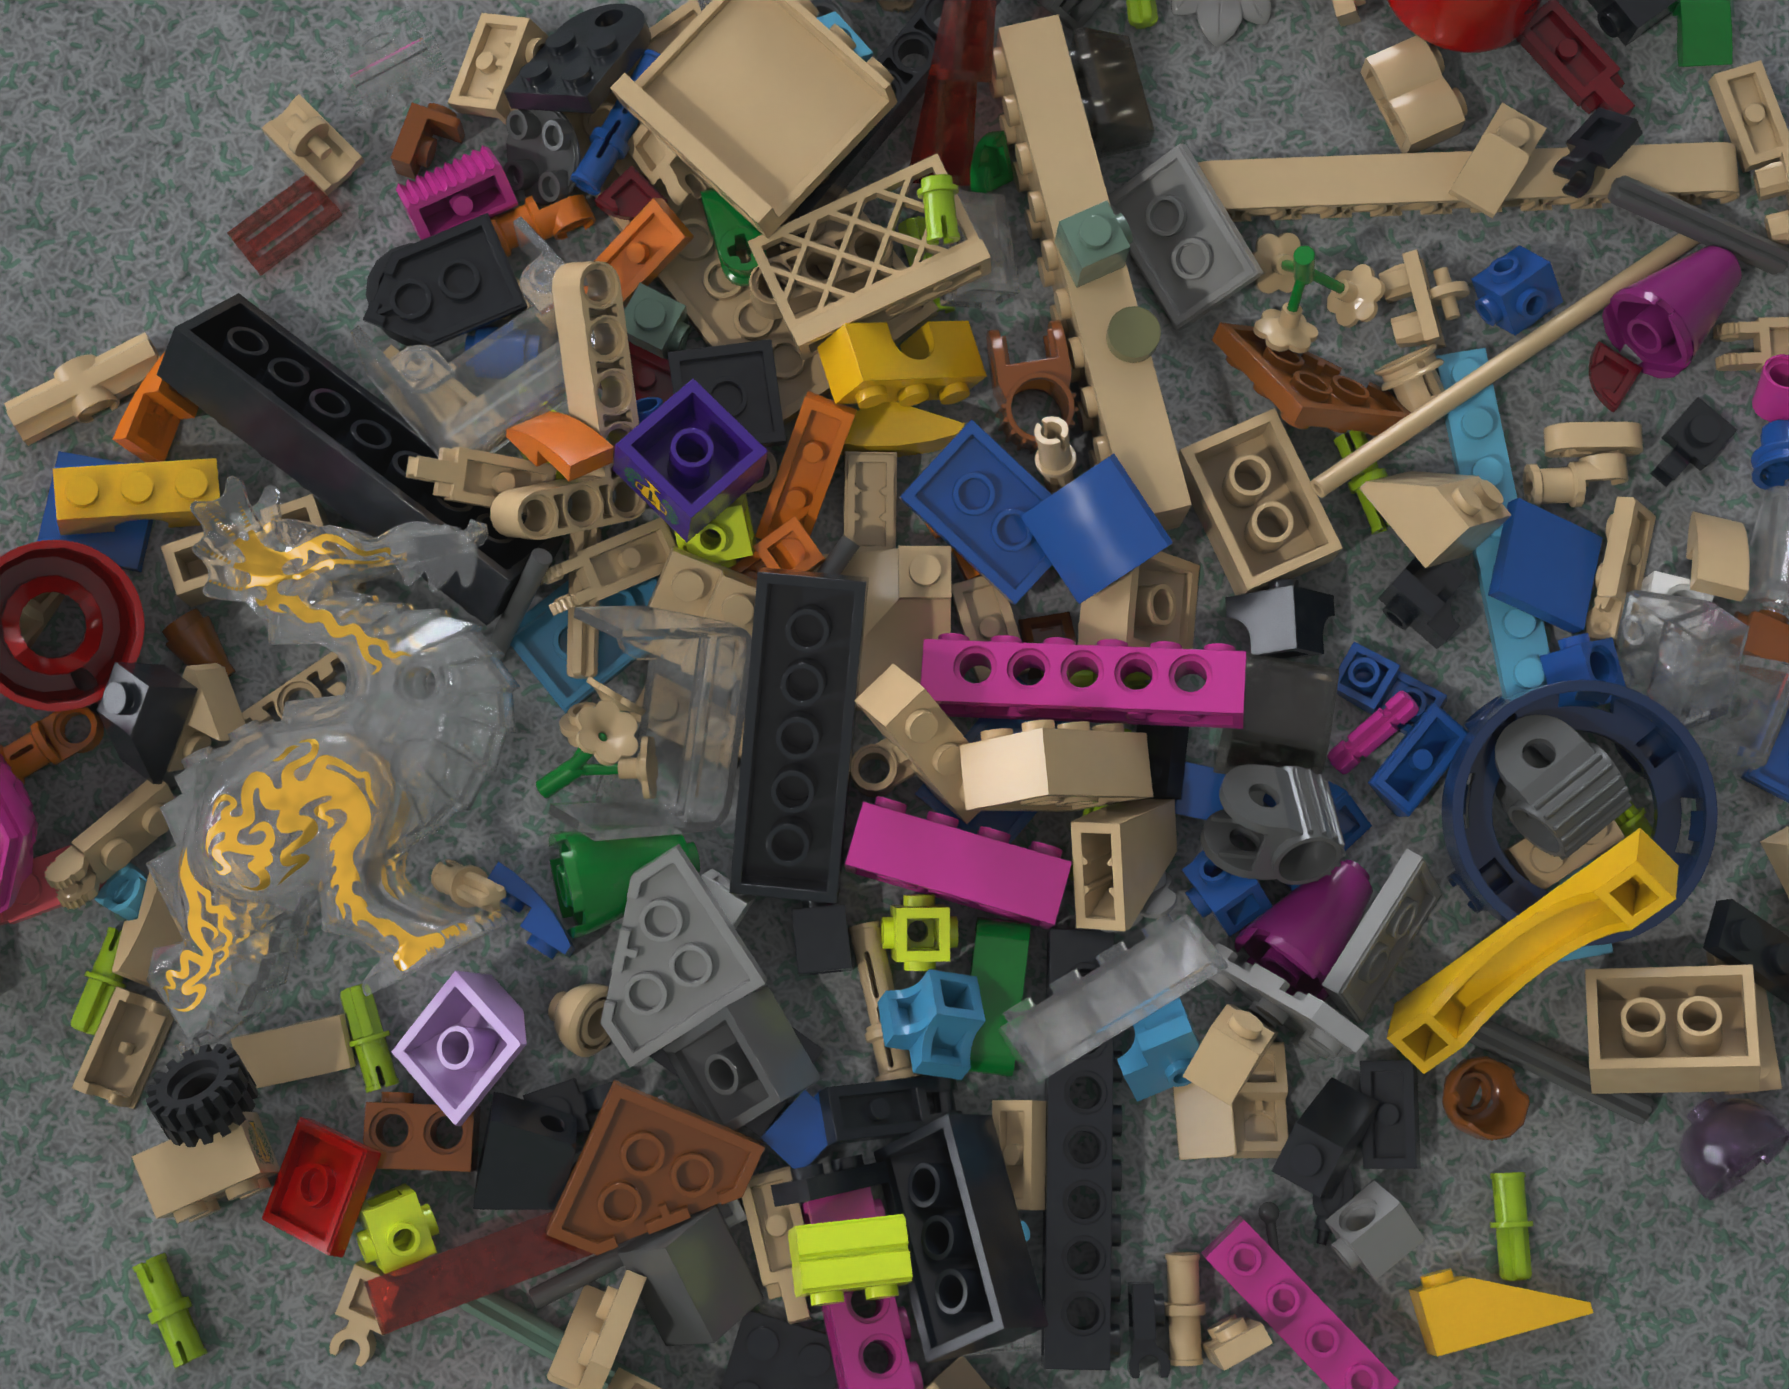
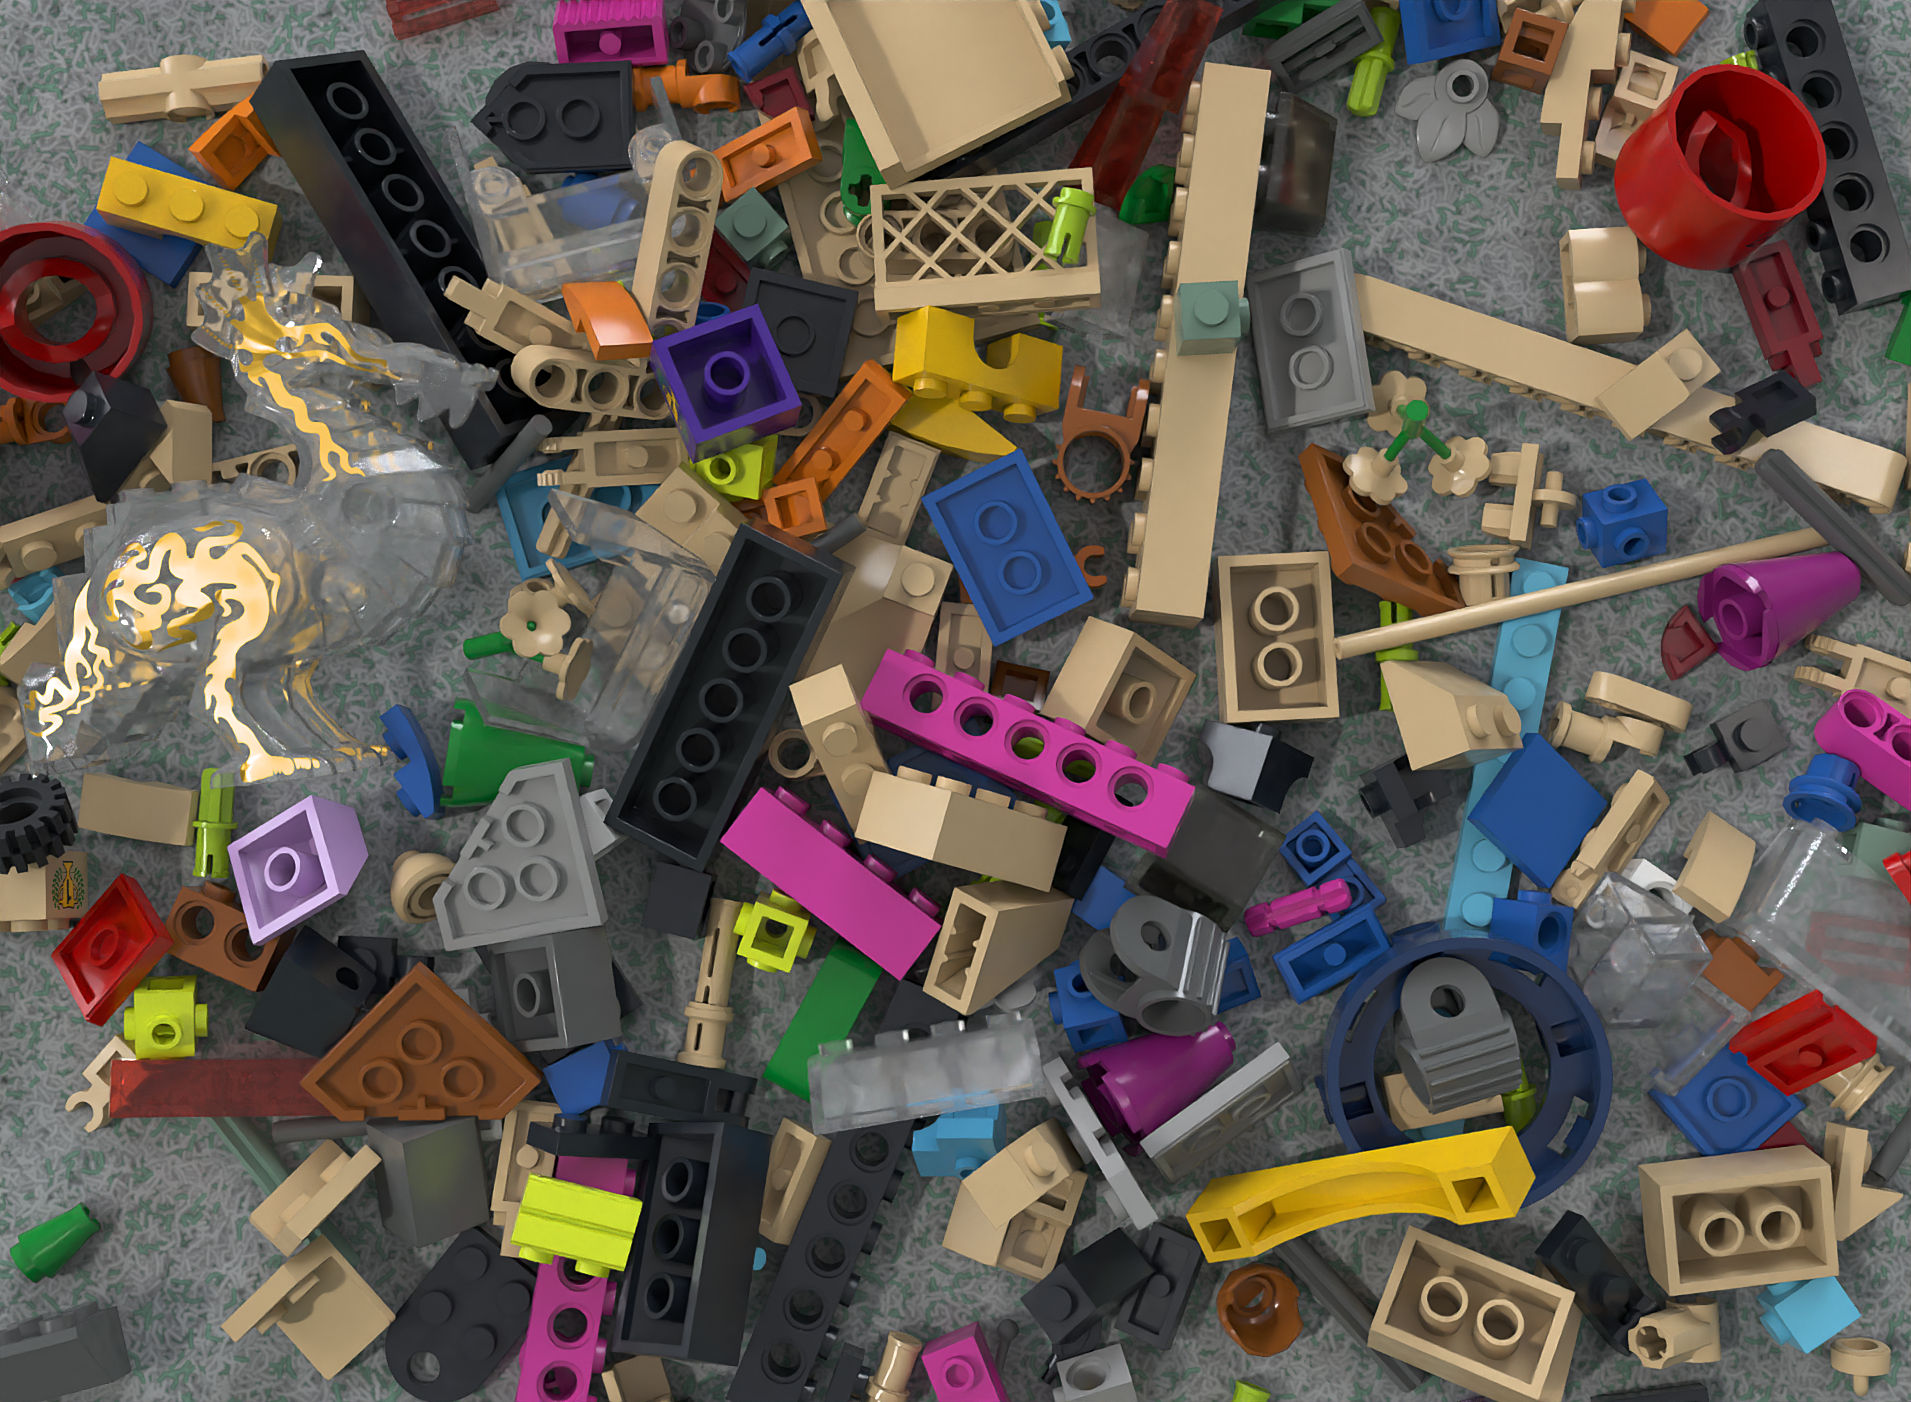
camera: 30 degrees right, 5 degrees up
(467, 885) = (359, 716): tan axle -> none
(934, 1022) = (751, 1026): dark azure brick -> none
(1055, 455) = (1089, 516): tan axle -> none
(1096, 529) = (1099, 605): blue slope -> none
(1133, 334) = (1213, 425): olive tile -> none

